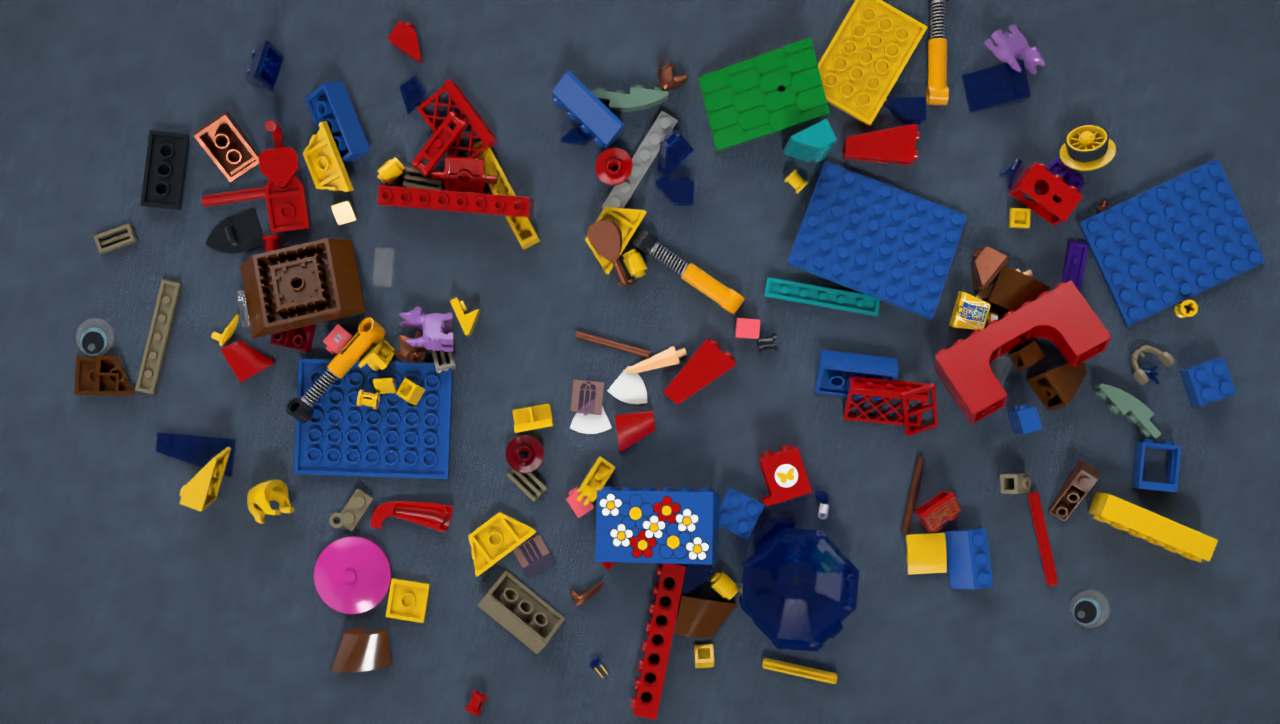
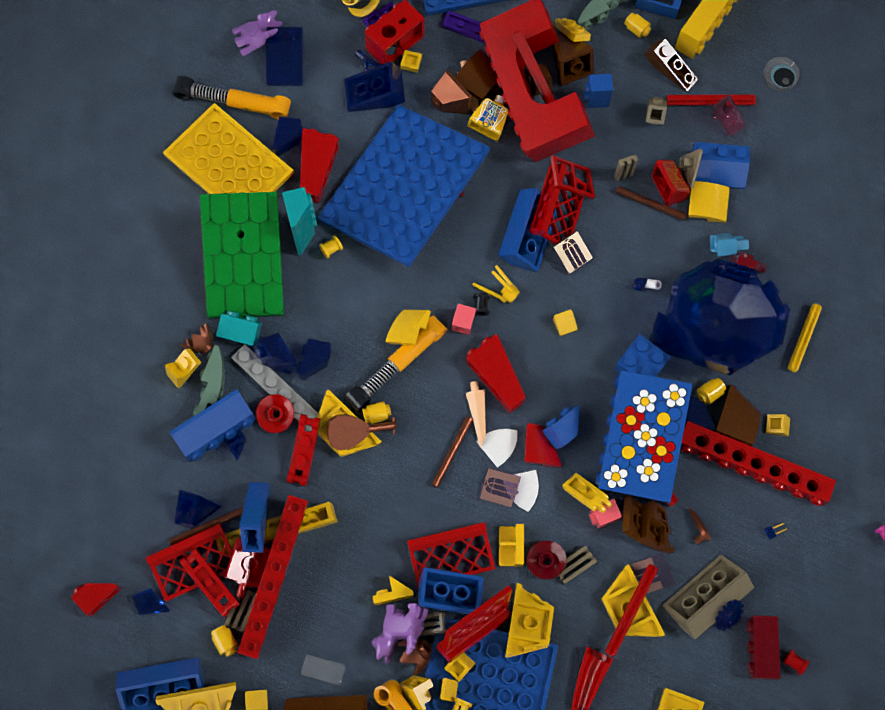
camera: 80 degrees left, 15 degrees down
(444, 399) = (476, 625): none -> red fence
(461, 448) = (529, 623): none -> yellow wing
(472, 369) = (449, 591): none -> blue slope
(483, 671) = (763, 647): none -> dark red brick
(492, 541) = (631, 610): none -> red axle
(493, 127) = (219, 520): none -> copper bar
(506, 111) = (193, 509): none -> clear blue slope
(506, 171) = (255, 517): none -> blue slope
(506, 634) = (724, 621): none -> clear blue gear
(529, 360) = (448, 537): none -> red fence
(576, 543) = (647, 524): none -> reddish brown slope
(582, 202) = (303, 450): none -> red plate
(640, 66) = (182, 368): none -> yellow slope
(655, 447) = (564, 428): none -> blue slope
(691, 111) = (239, 328): none -> teal brick
(726, 274) = (407, 326): none -> yellow slope
(765, 430) = (565, 322): none -> yellow slope
(783, 475) = (612, 311): red container -> none
(786, 367) = (509, 290): none -> yellow plant
(821, 296) = (446, 246): teal plate -> none
(840, 424) = (572, 252): none -> piece
(859, 602) = (747, 261): none -> dark red wing
(880, 579) = (727, 245): none -> dark azure piece
(946, 464) = (629, 167): none -> dark tan tile
(961, 528) = (690, 165): none -> dark tan piece
(979, 187) = (375, 88): none -> clear blue slope
(1026, 560) = (729, 115): none -> clear pink slope
(1029, 348) = (533, 67): none -> red axle
(1090, 379) = (572, 29): none -> yellow hinge
(1113, 448) = (637, 25): none -> yellow brick

